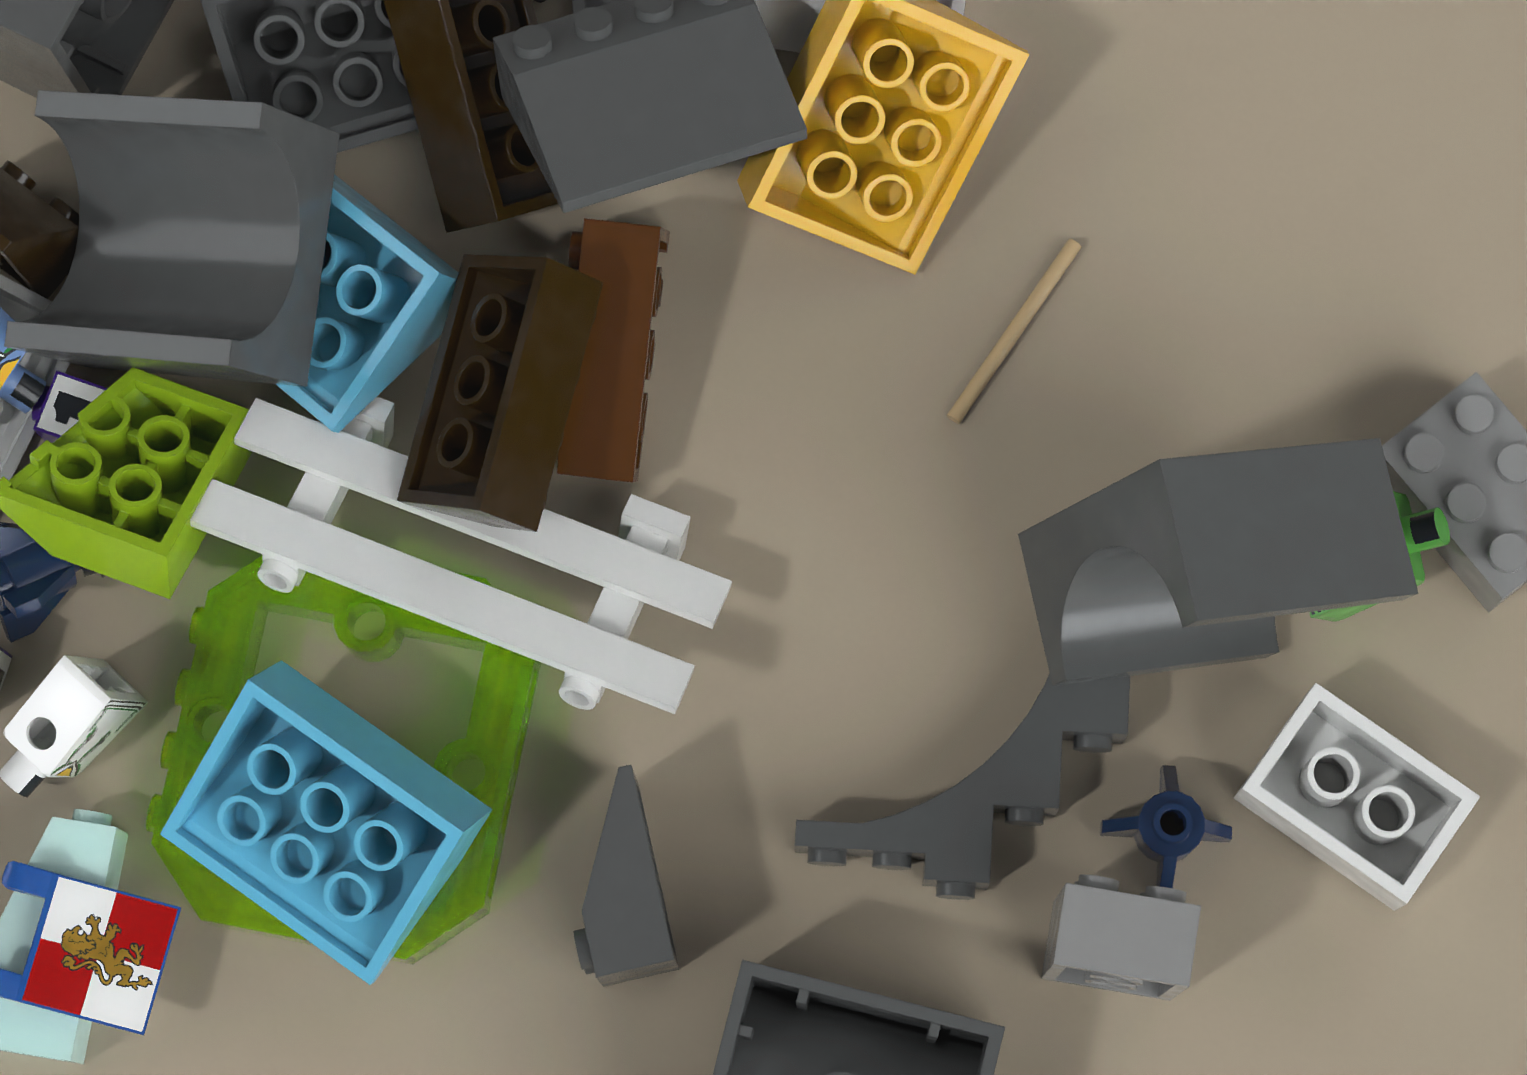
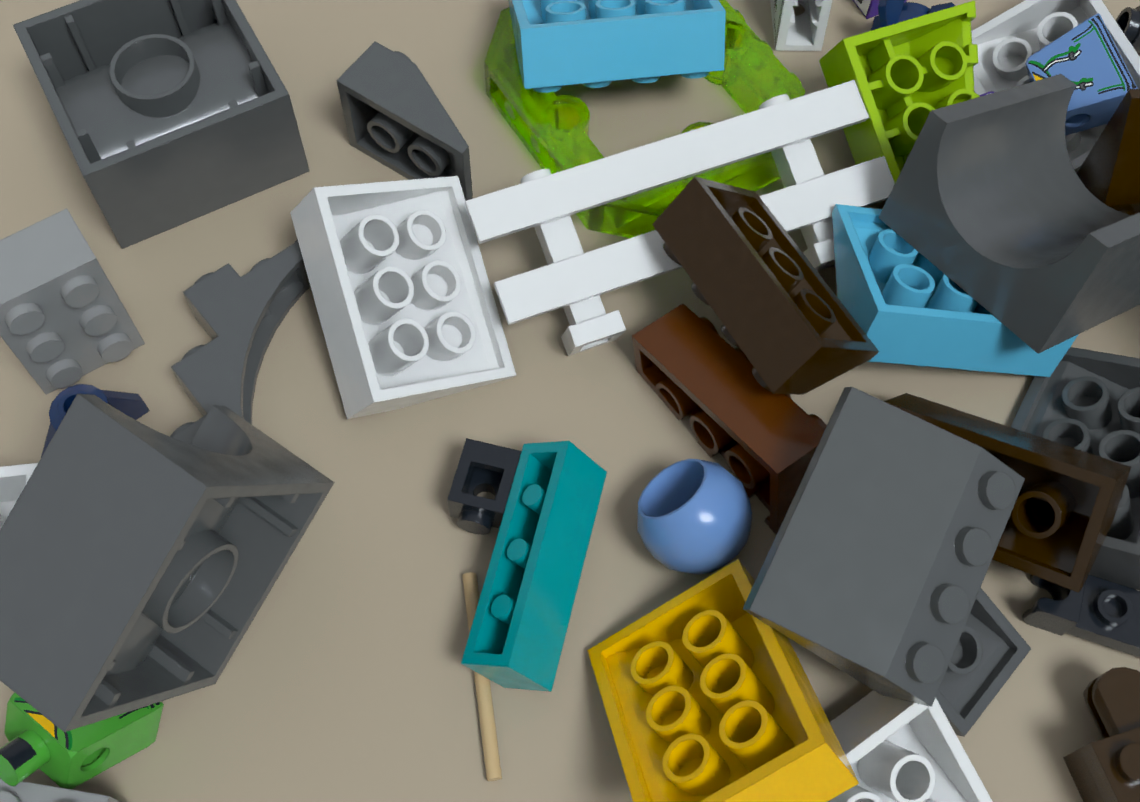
camera: 130 degrees right, 15 degrees down
(739, 281) = (694, 516): none -> medium blue helmet
(796, 703) = (400, 292): none -> white slope
(886, 445) = (482, 469): none -> black brick
(900, 358) = (535, 567): none -> teal brick

